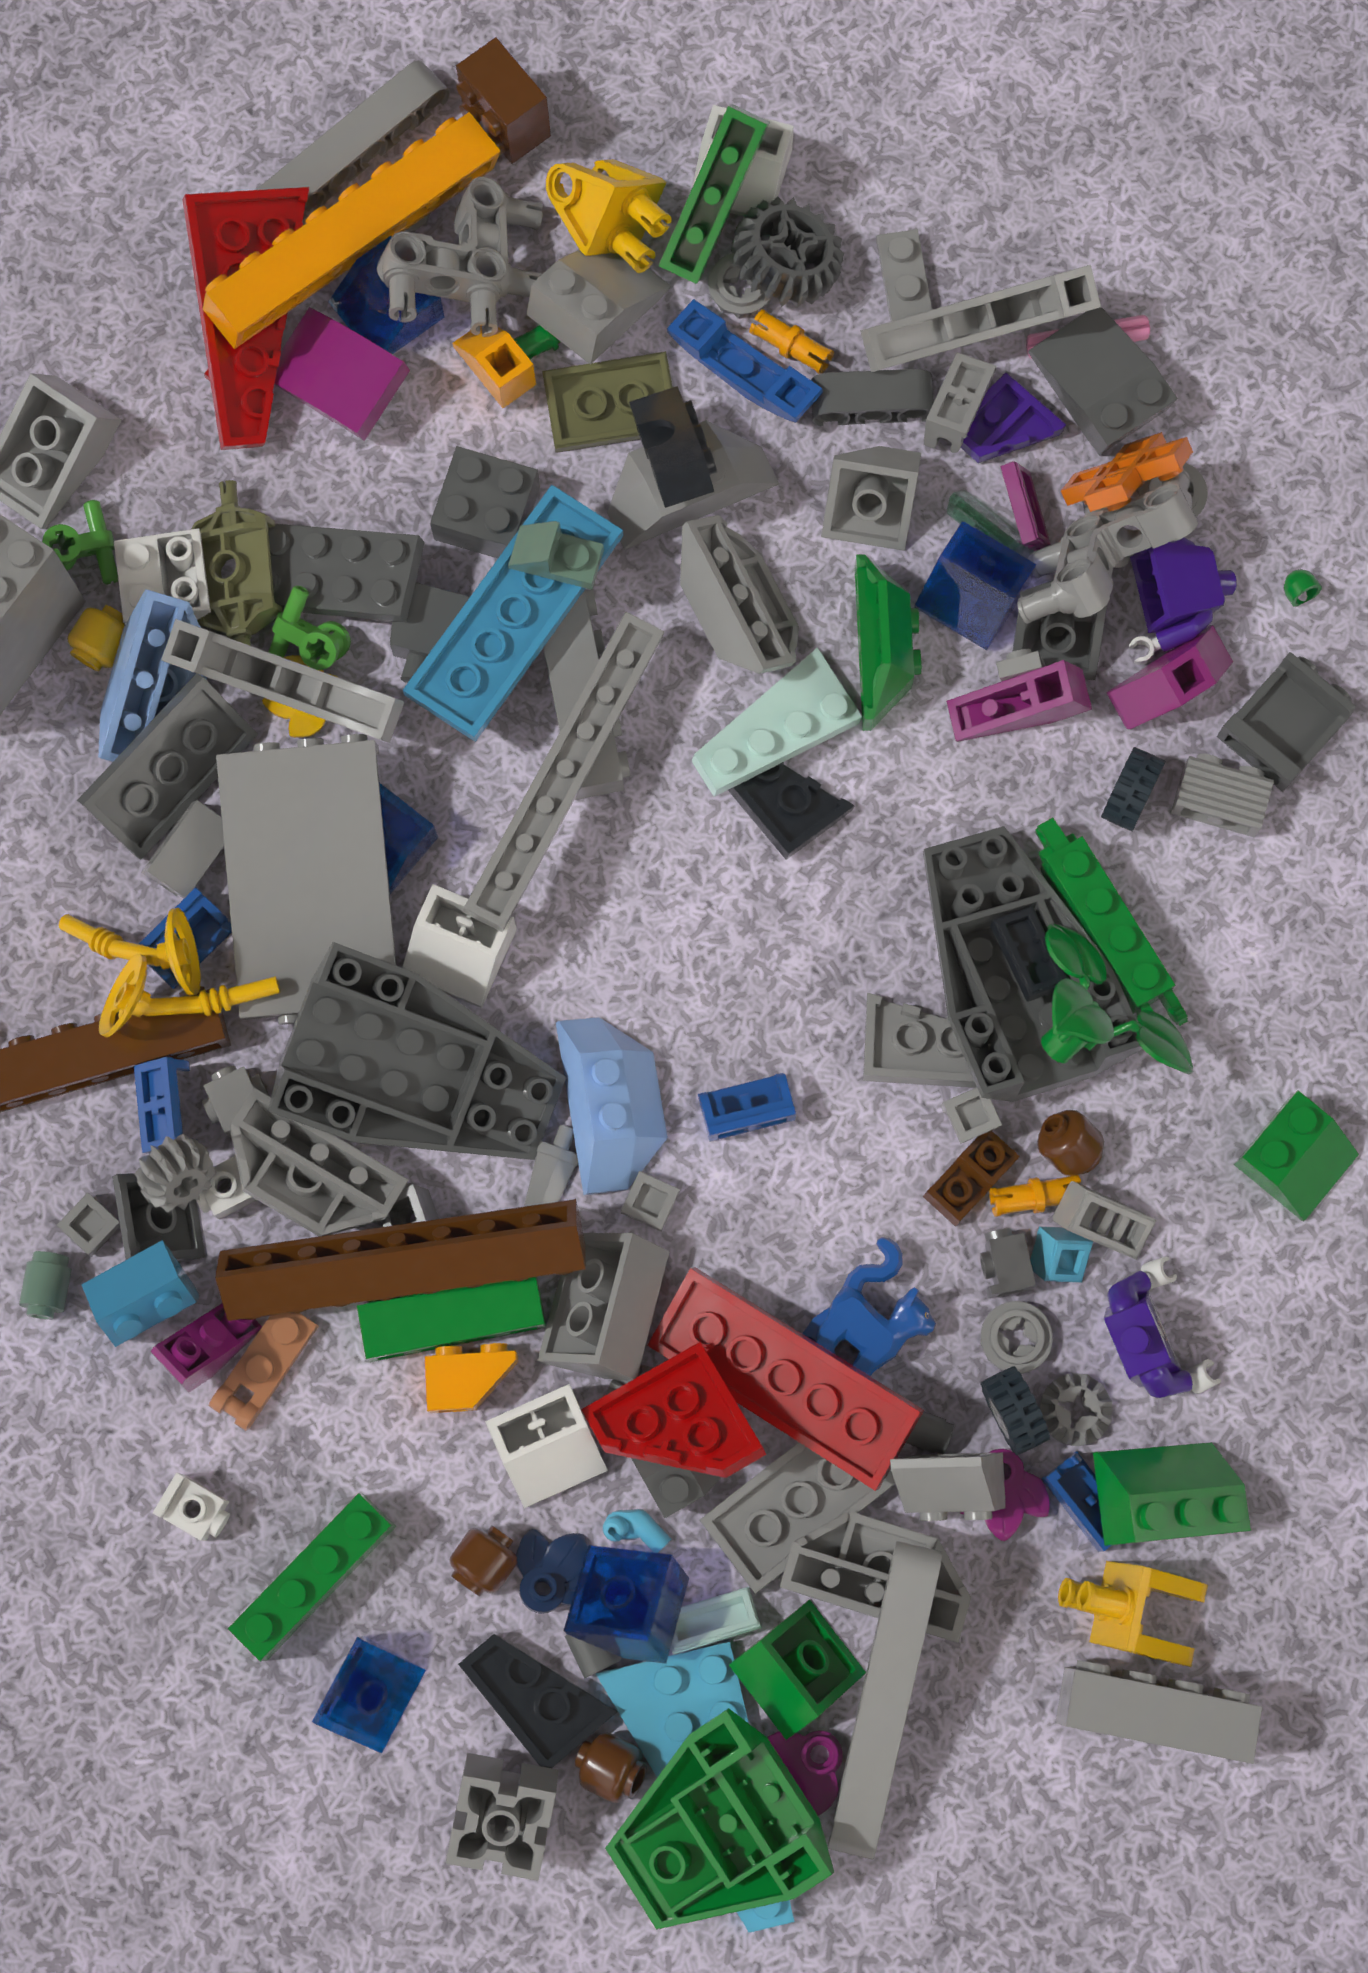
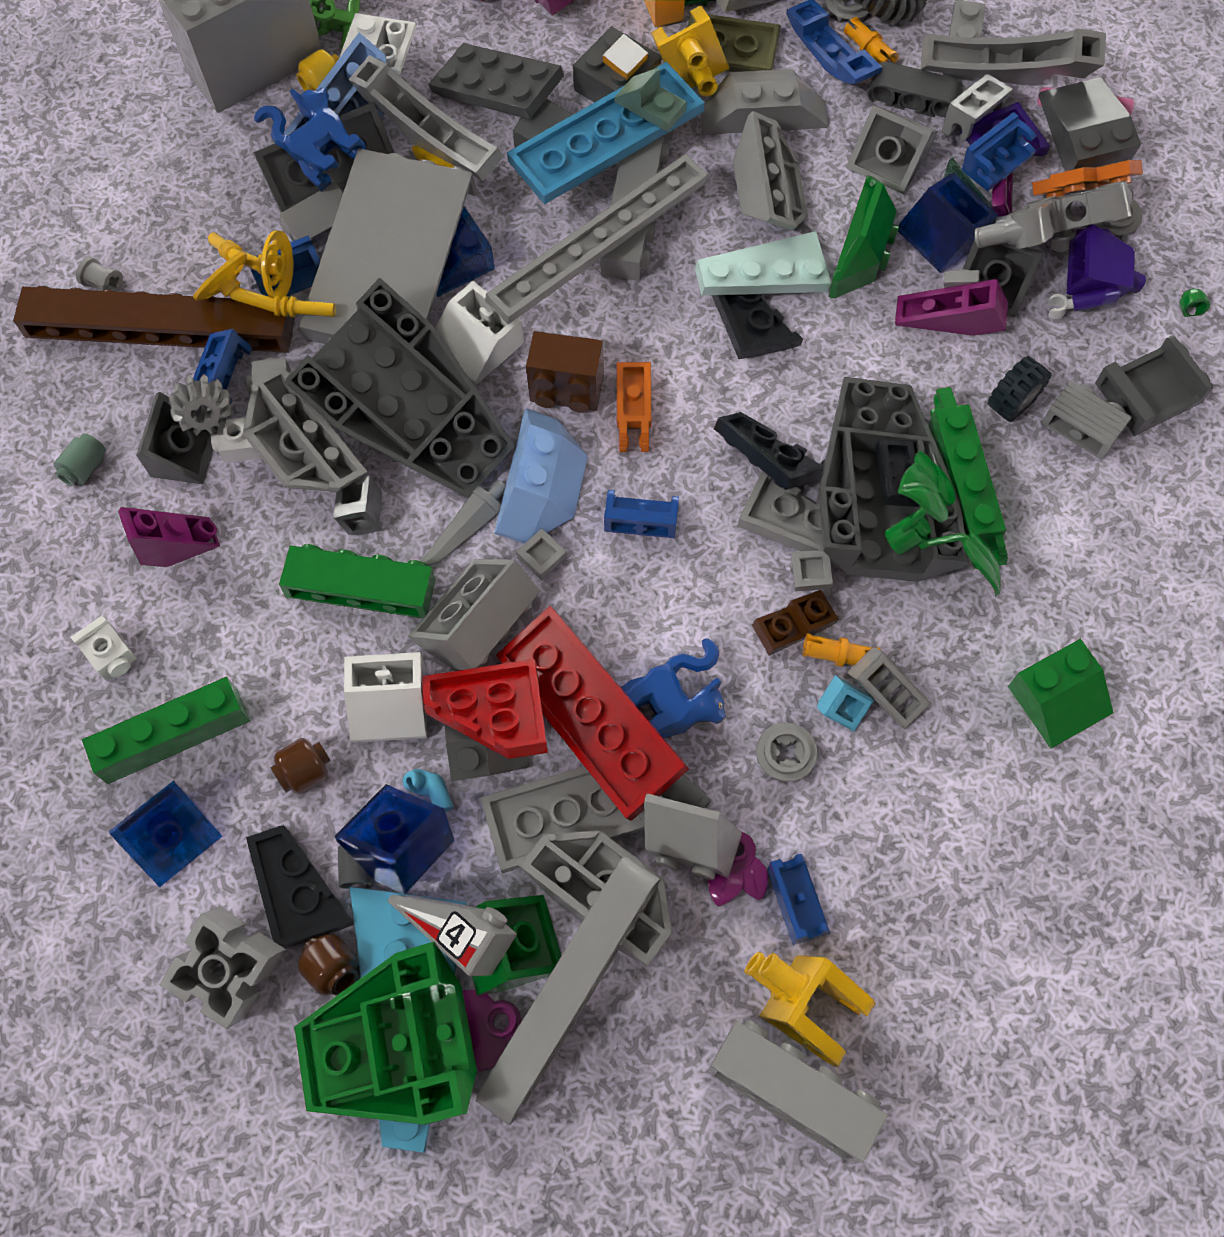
camera: 20 degrees right, 10 degrees down
(89, 1224) = (128, 430): light grey plate -> none
(139, 1293) = (136, 480): dark azure slope -> none
(154, 762) = (315, 138): none -> blue animal
(246, 598) = (432, 55): olive plate -> none
(263, 1366) = (206, 570): nougat plate -> none
(310, 639) = (470, 118): bright green piece -> none
(401, 1260) = (336, 522): reddish brown brick -> none
(465, 1380) = (348, 630): light orange slope -> none
(497, 496) = (625, 57): none -> white tile
(552, 1563) = (349, 788): dark blue plate -> none
(579, 453) = (694, 52): none -> yellow piece
(591, 963) = (565, 371): none -> reddish brown brick
(674, 446) = (762, 63): black arch -> none
(682, 963) = (633, 402): none -> orange hinge
(715, 1620) = (459, 881): light aqua tile -> none
(751, 1683) = (466, 934): none -> light grey slope
(873, 977) = (780, 461): none -> black wing
(1007, 1263) = (799, 692): flat silver brick -> none
(1011, 474) = (999, 152): none -> blue hinge
(1015, 1410) = (764, 802): black wheel -> none
(1058, 1421) = (819, 842): light grey gear -> none
(1070, 1143) = (882, 620): reddish brown head -> none
(1143, 1340) = (888, 788): dark purple torso -> none
(1168, 1494) = (867, 915): green slope -> none
(1171, 679) = (1072, 328): magenta slope -> none

